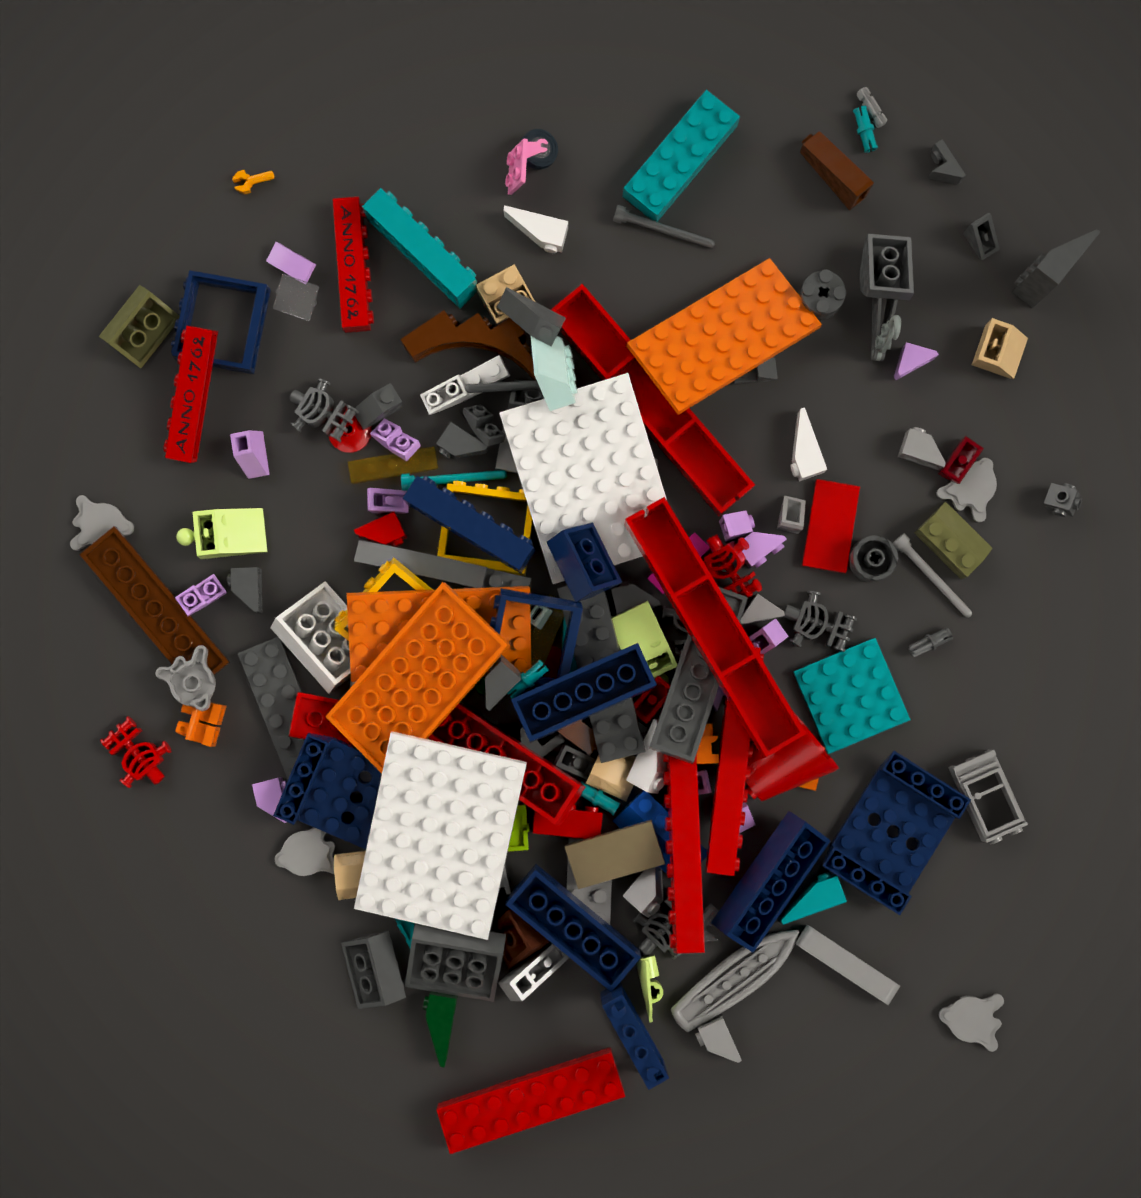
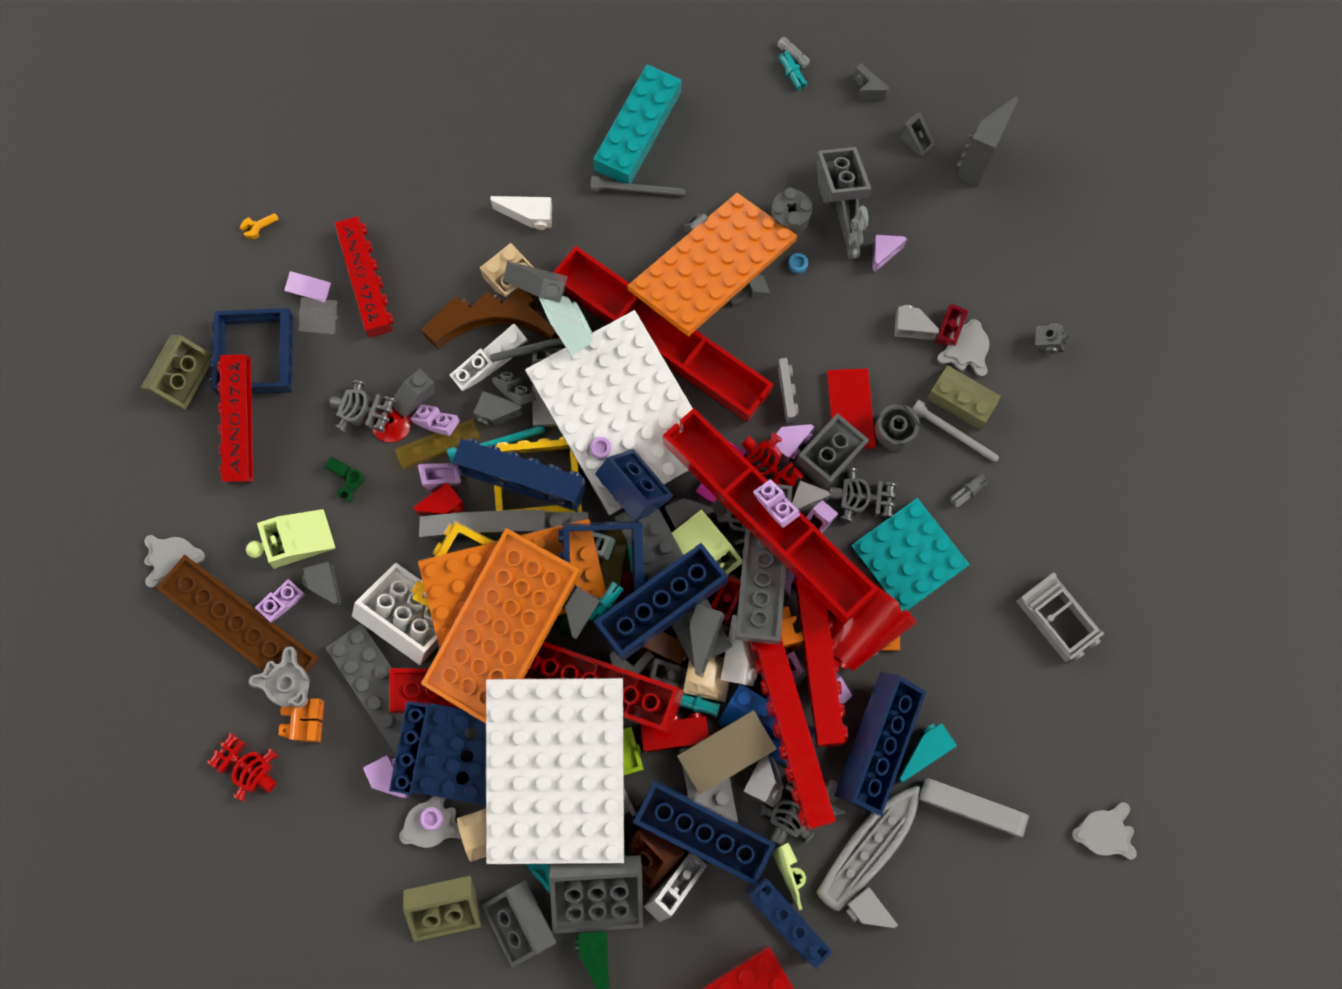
camera: 15 degrees left, 10 degrees down
(250, 453) = (302, 460): lavender slope -> none
(290, 472) = (354, 477): none -> dark green bar
(302, 937) = (441, 908): none -> olive slope
(309, 849) = (431, 818): none -> lavender tile
(420, 247) = (423, 247): teal brick -> none
(536, 150) = (507, 145): plate -> none
(558, 513) = (600, 447): none -> lavender tile
(619, 733) = (704, 631): none -> dark grey slope
(715, 282) = (694, 222): none -> dark grey tile
(724, 620) = (776, 503): none -> lavender slope
(736, 525) = (764, 424): lavender slope -> none
(769, 491) = (787, 390): none -> light grey plate
(792, 515) = (813, 407): light grey slope -> none
(798, 569) = (831, 452): none -> dark grey slope
(806, 455) = (813, 351): white slope -> none
(815, 352) = (797, 263): none -> dark azure tile
(836, 170) = (777, 107): reddish brown slope -> none
(918, 807) = (1001, 644): dark blue slope -> none
(1000, 348) = (959, 223): tan slope -> none

